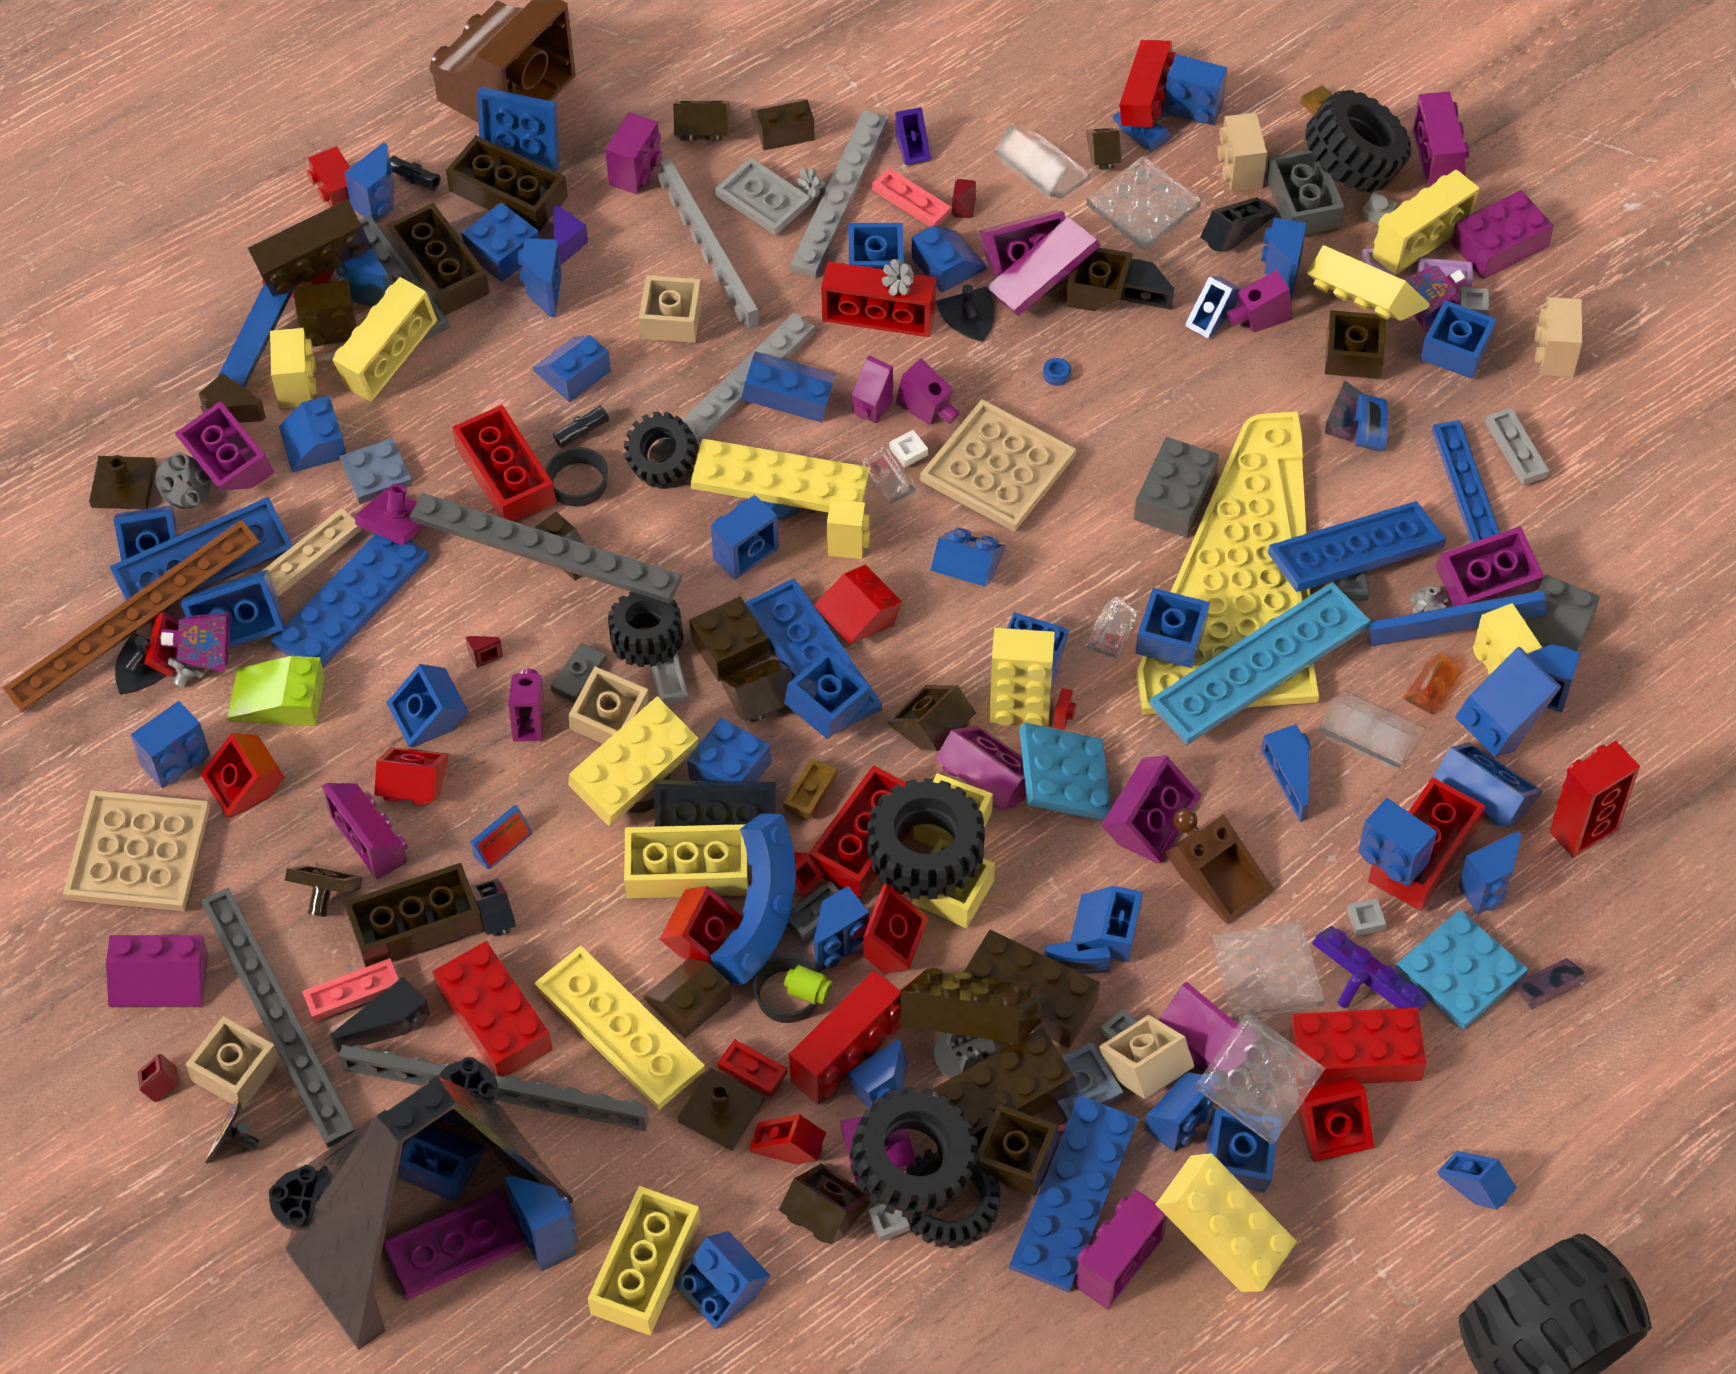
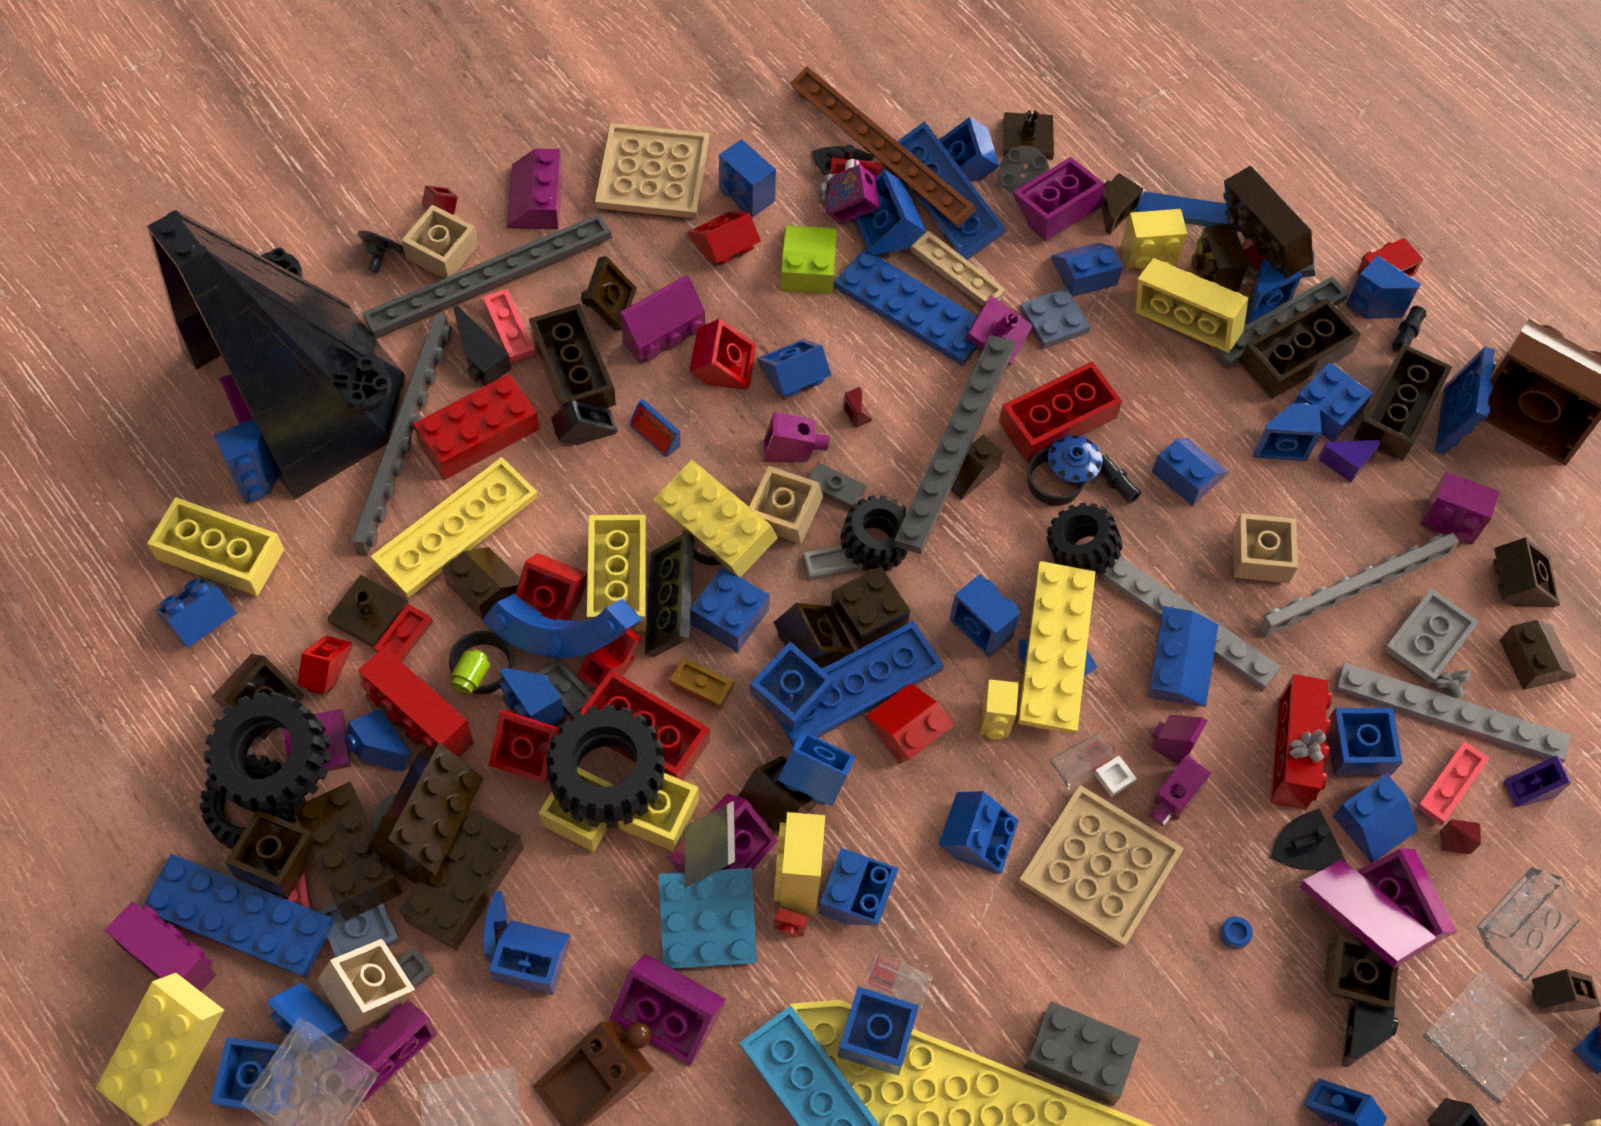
camera: 85 degrees right, 5 degrees up
(564, 463) = (1071, 467): none -> blue dish
(913, 676) = (816, 769): none -> blue brick
(1001, 755) = (709, 844): none -> dark grey sticker

